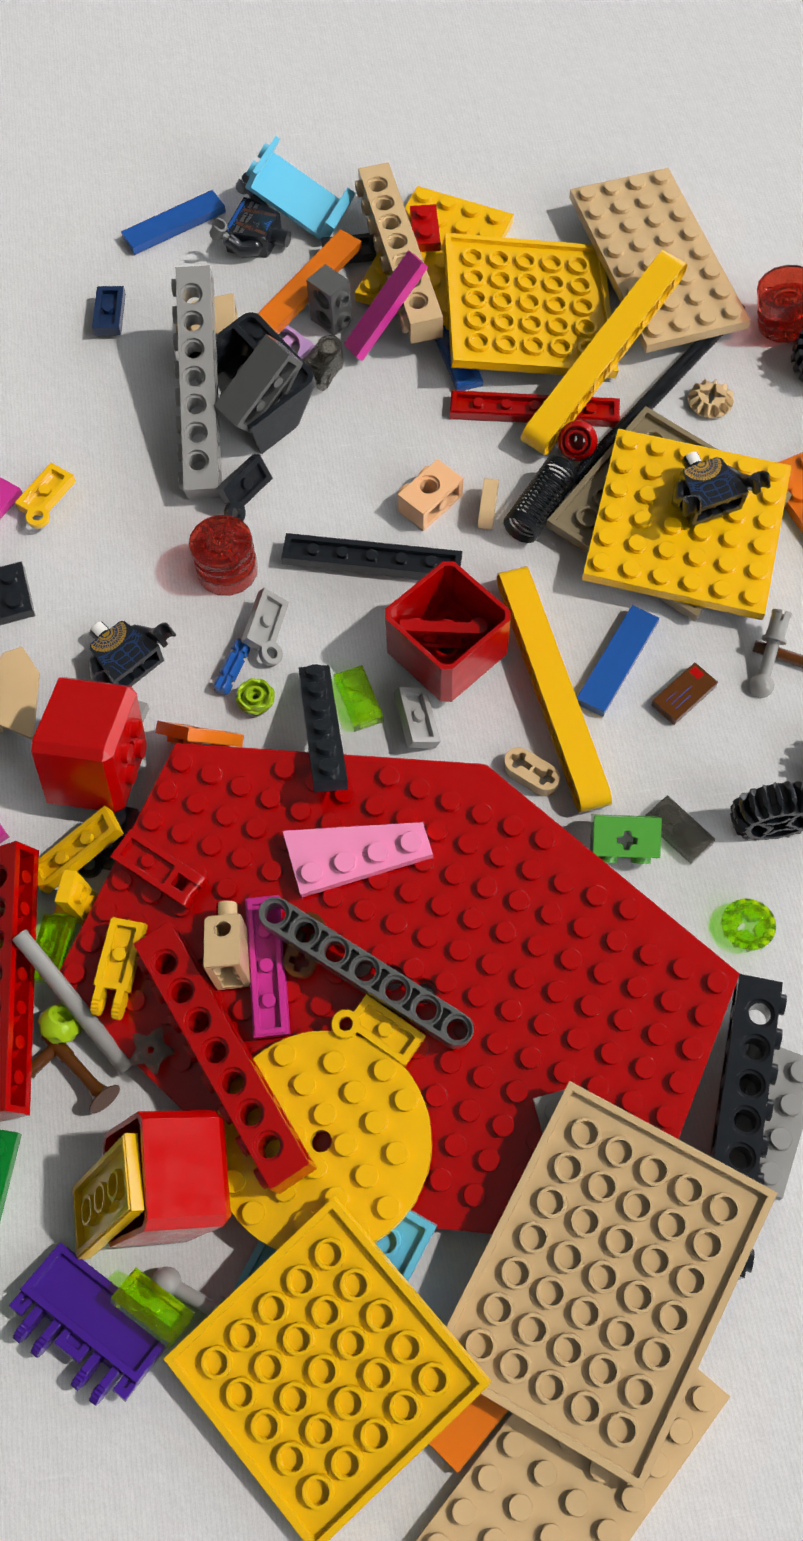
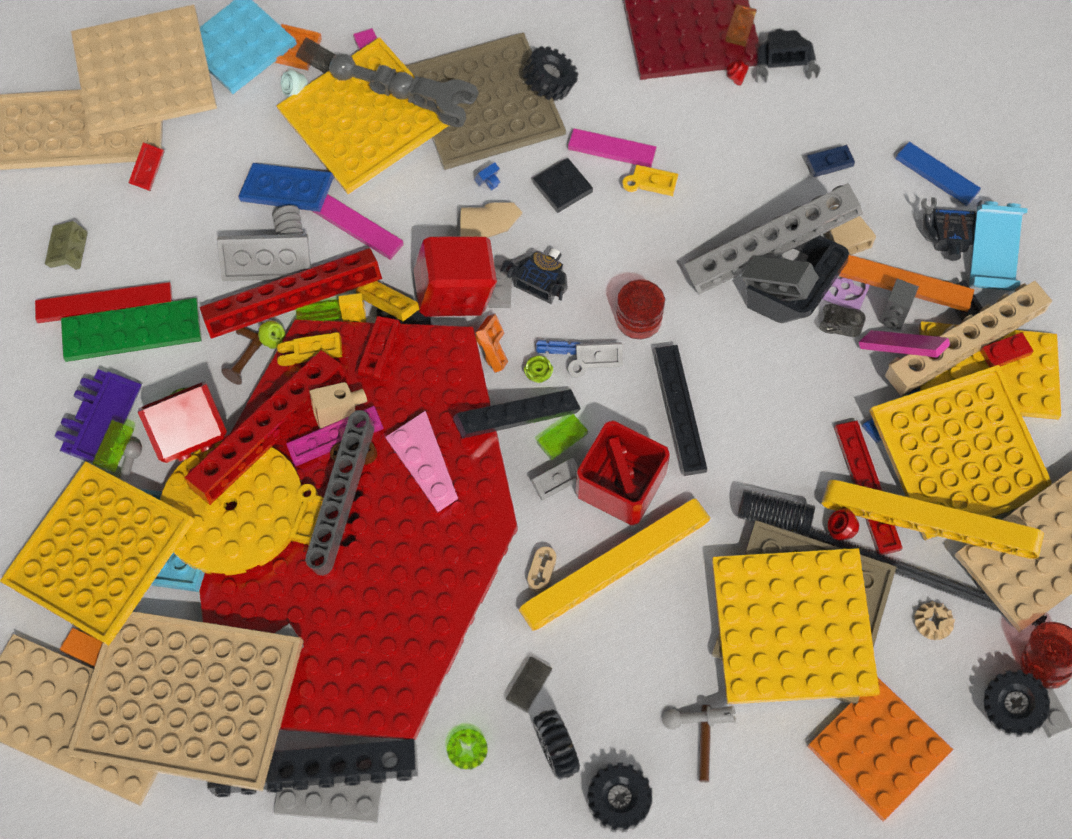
camera: 70 degrees right, 0 degrees up
(72, 1001) = (286, 331): light grey piece -> none
(108, 1196) = (163, 392): yellow tile -> none
(160, 1052) = (259, 384): clear smoke plate -> none
(244, 485) = (706, 302): black hinge -> none
(444, 489) = (758, 442): light nougat brick -> none
(488, 503) = (759, 476): tan beam -> none
(617, 660) = (656, 607): blue tile -> none
(643, 829) = (505, 643): bright green brick -> none
(684, 693) = (644, 662): reddish brown tile -> none
(713, 488) = (816, 626): black torso -> none

